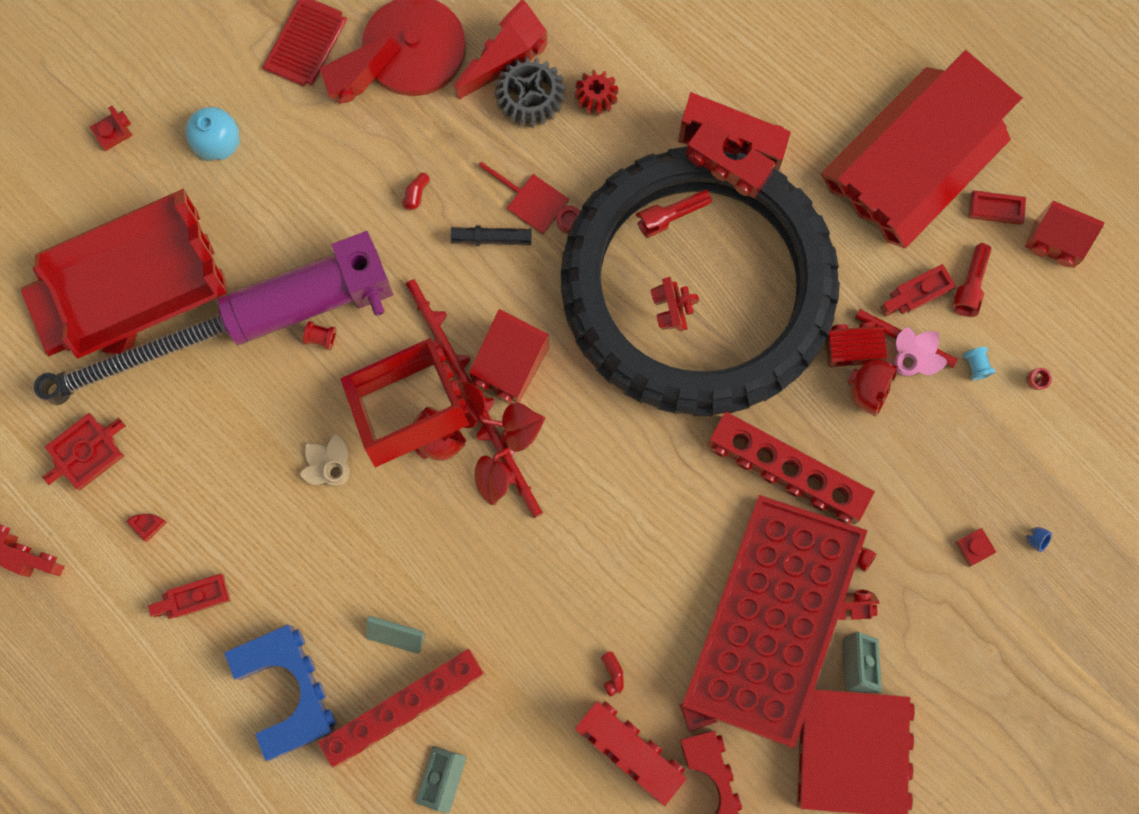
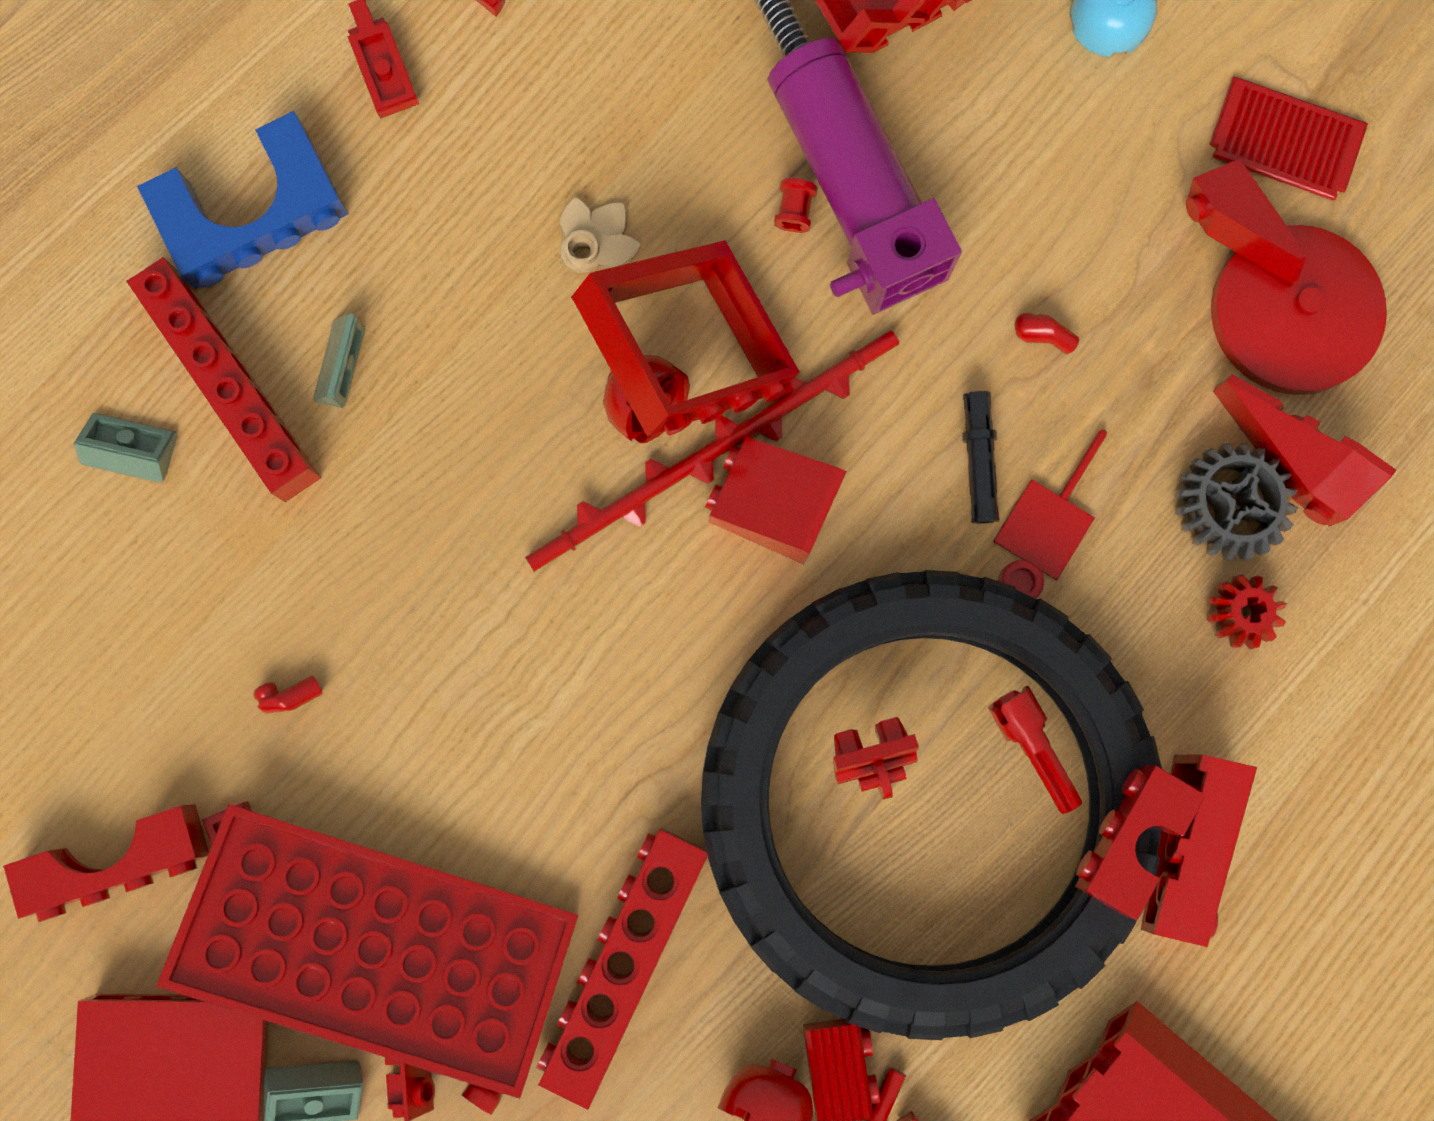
camera: 80 degrees right, 5 degrees up
(520, 430) = (647, 515): red plant -> none
(630, 753) = (164, 727): red wedge -> none

